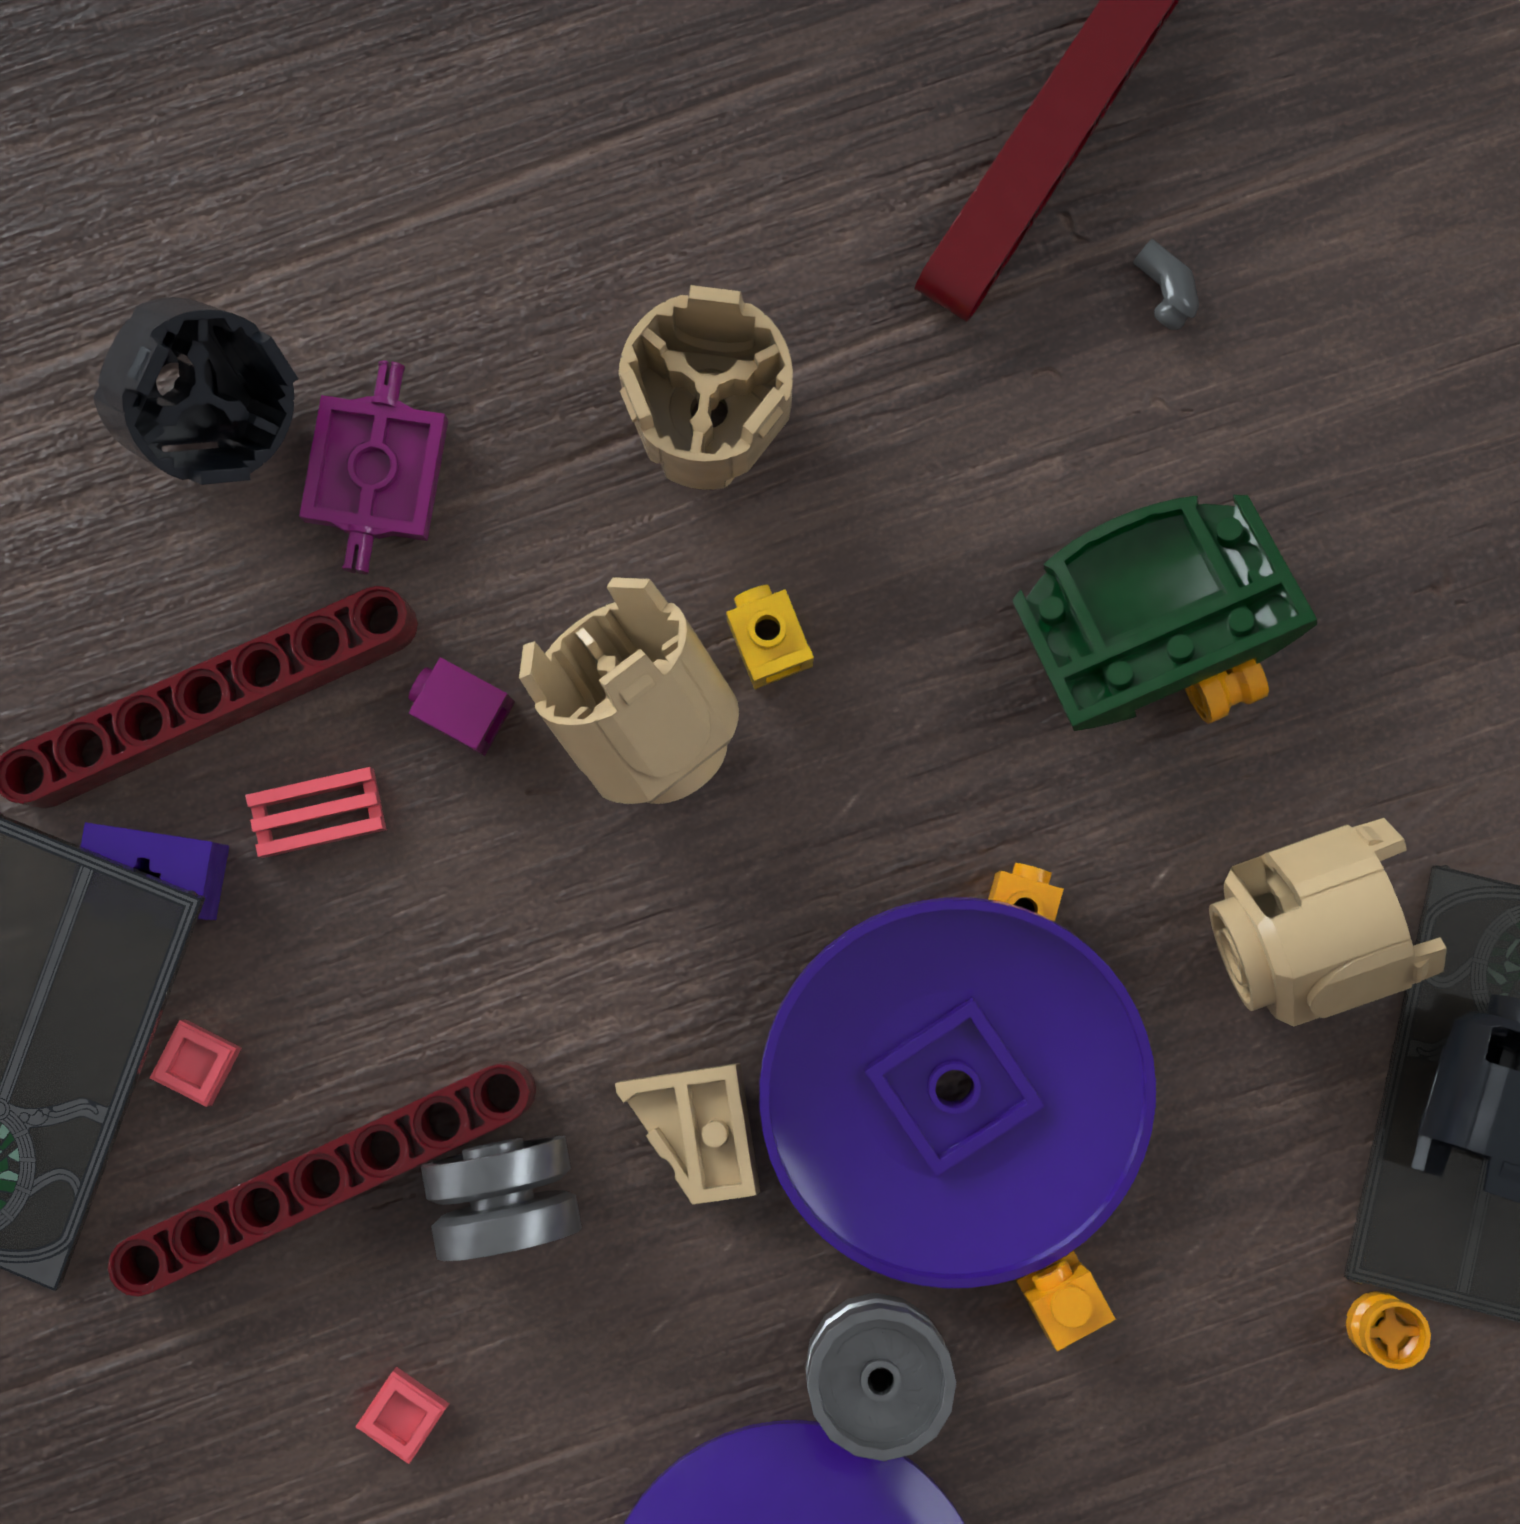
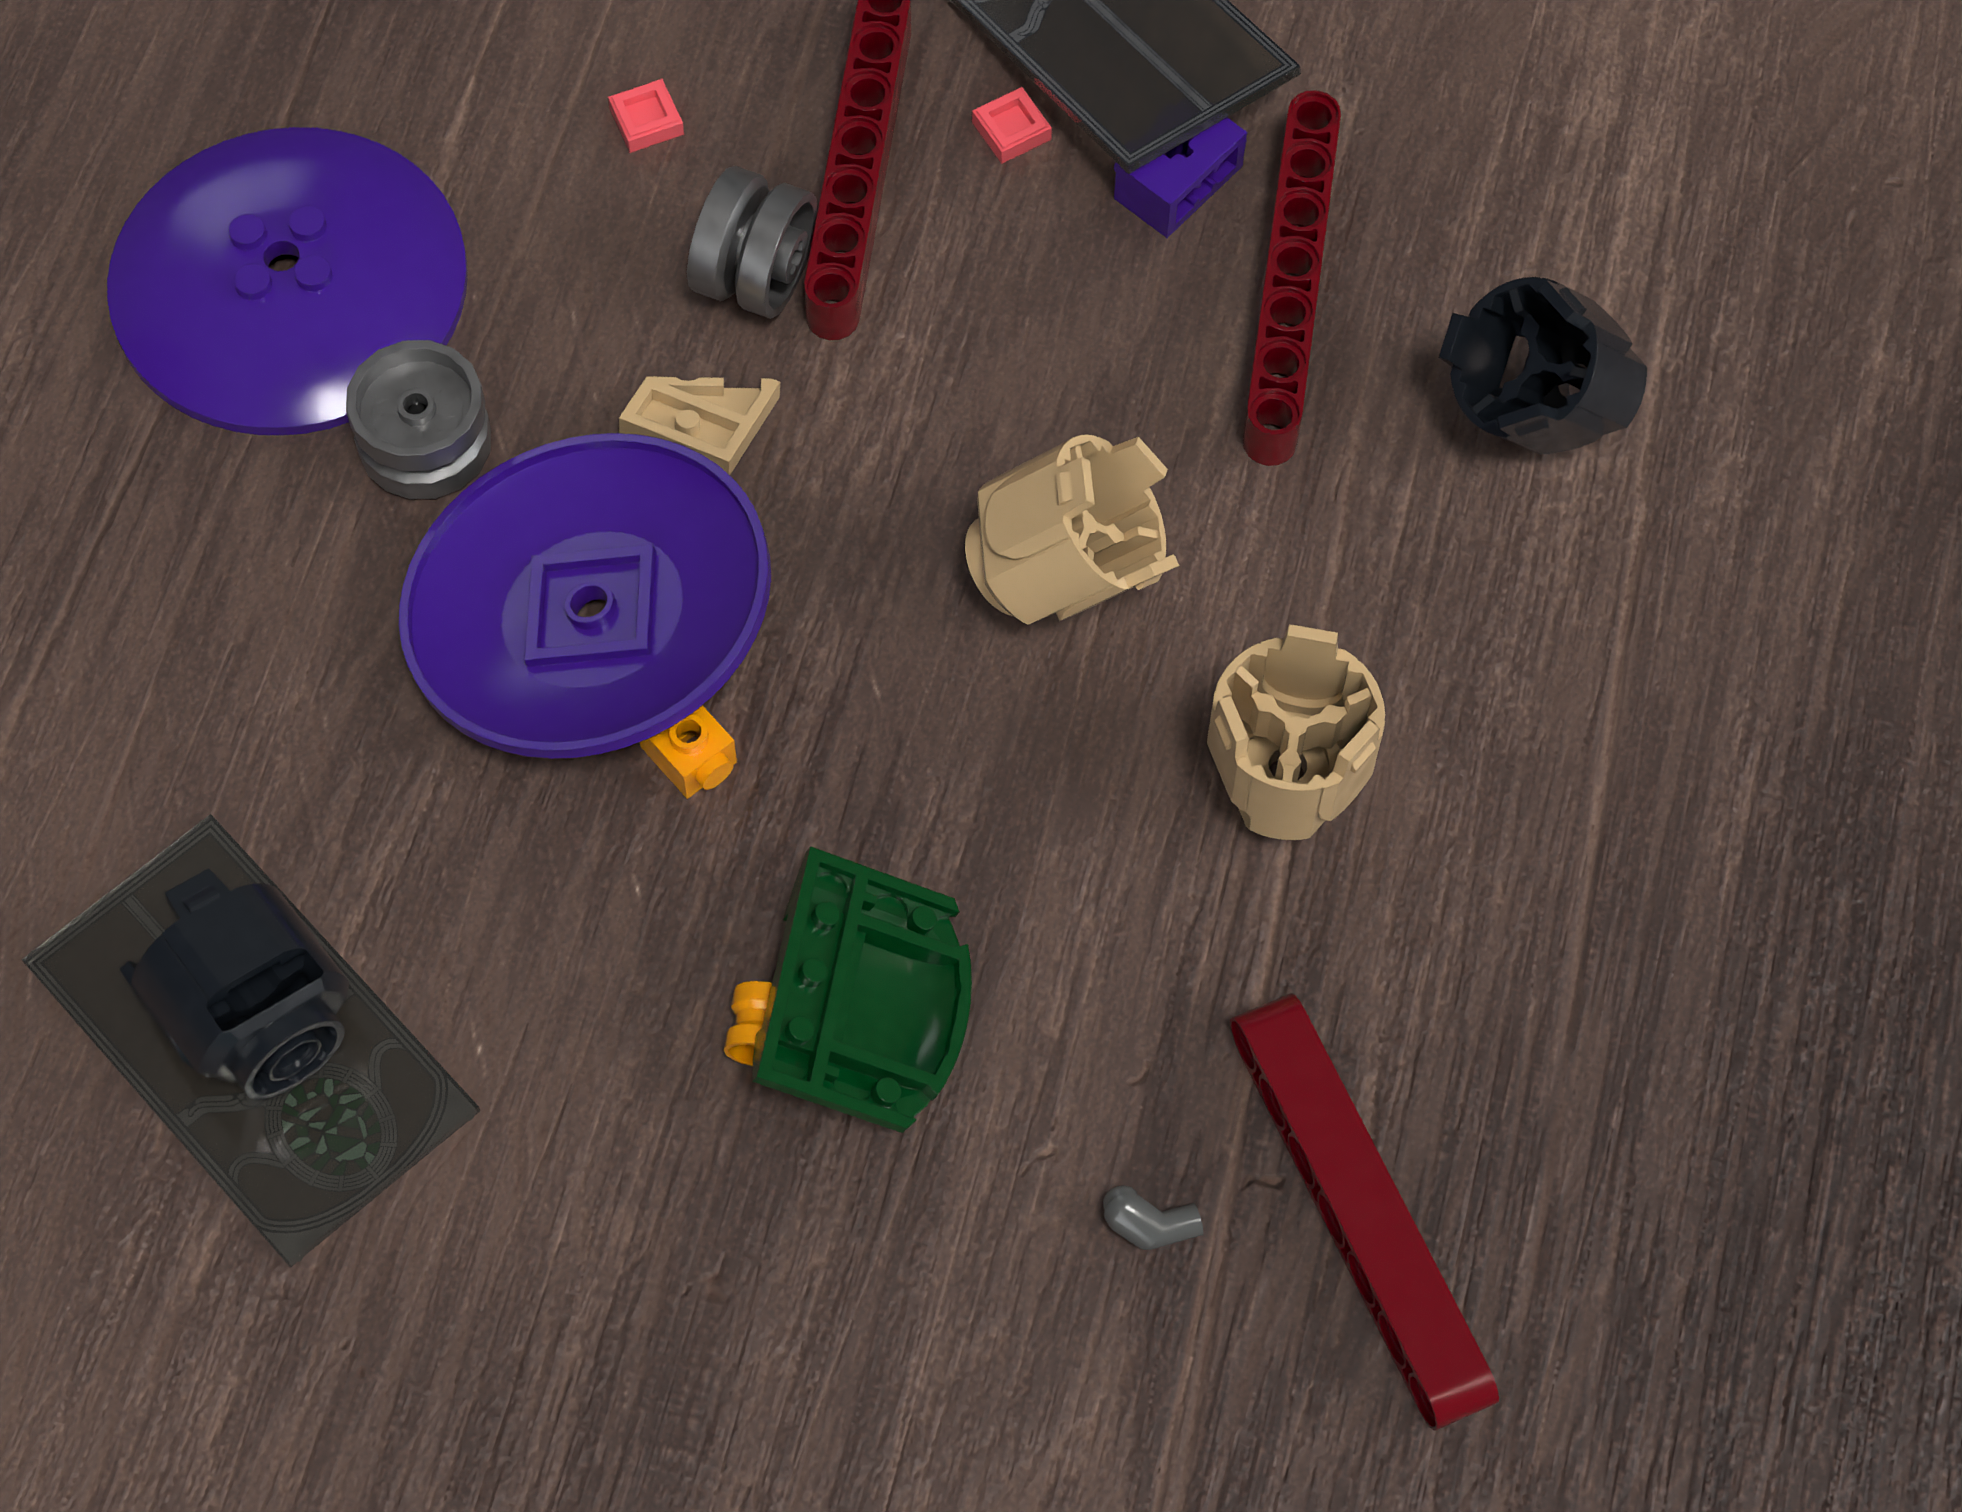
camera: 120 degrees right, 20 degrees down
(263, 823) = (1162, 266): coral tile -> none
(374, 467) = (1408, 492): magenta plate -> none
(459, 705) = (1170, 431): magenta brick -> none
(775, 658) = (1057, 696): yellow brick -> none
(1065, 1301) = (364, 586): light orange brick -> none
(1320, 926) = (504, 938): tan piece -> none
(1402, 1332) = (148, 792): light orange wheel -> none

